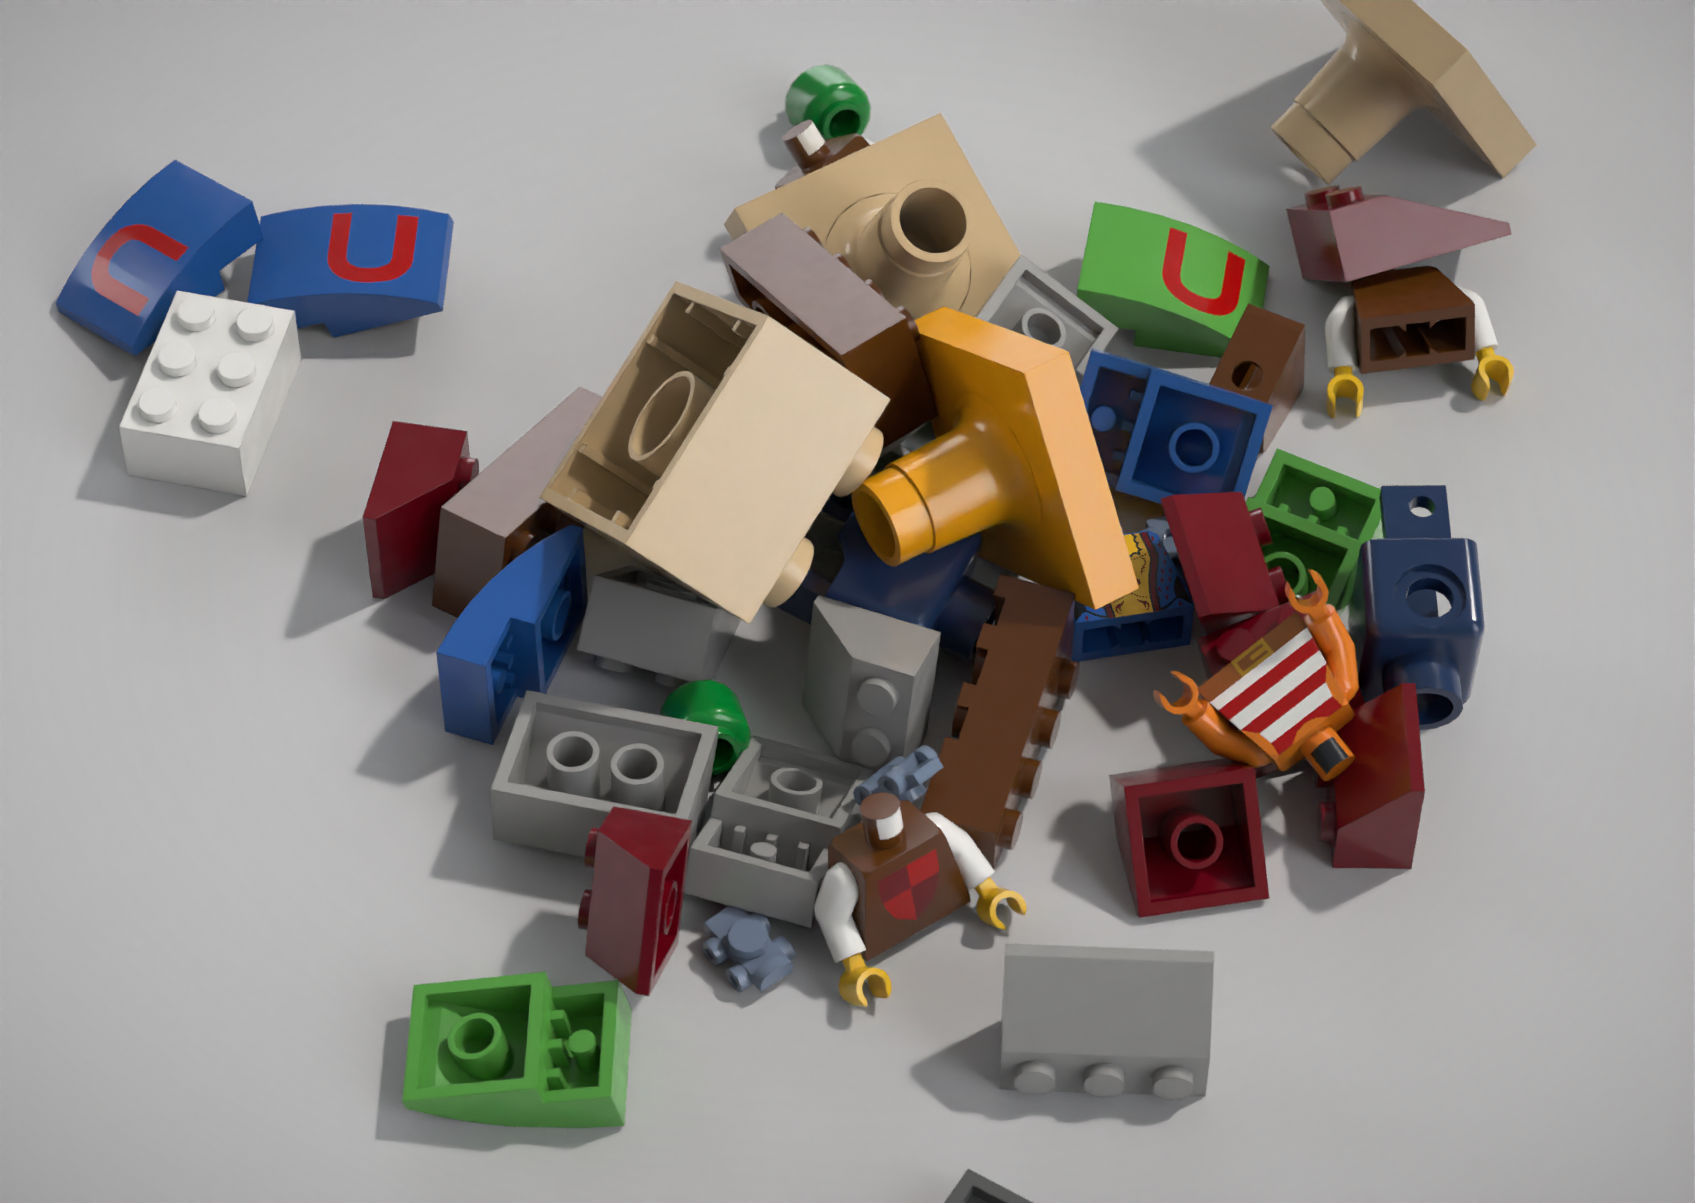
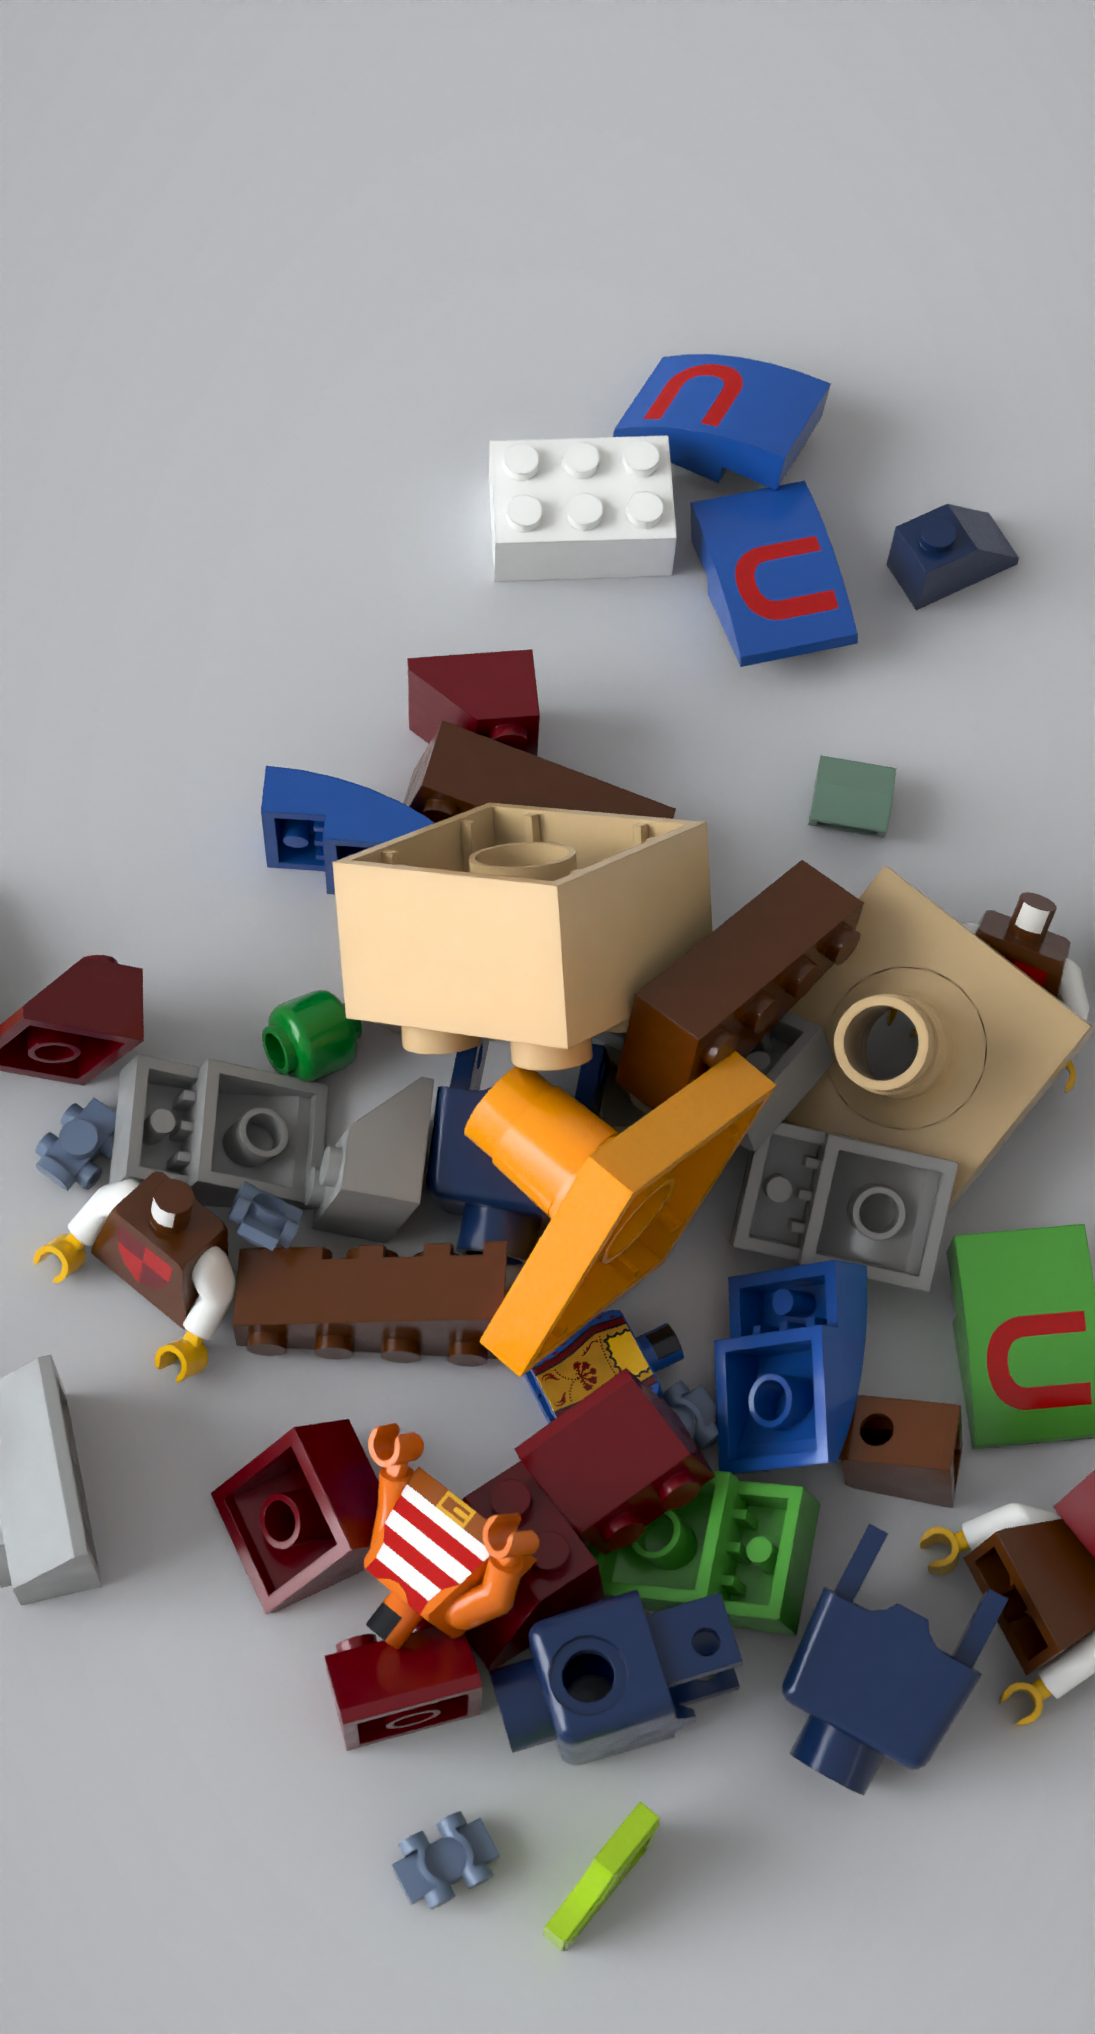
camera: 70 degrees right, 15 degrees up
(380, 150) = (947, 553): none -> dark blue slope
(582, 758) = (211, 960): light grey slope -> none
(604, 274) = (852, 796): none -> sand green piece
(1466, 431) = (878, 1679): none -> dark blue piece
(1534, 806) = (434, 1867): none -> sand blue piece
(1577, 676) = (603, 1876): none -> lime tile

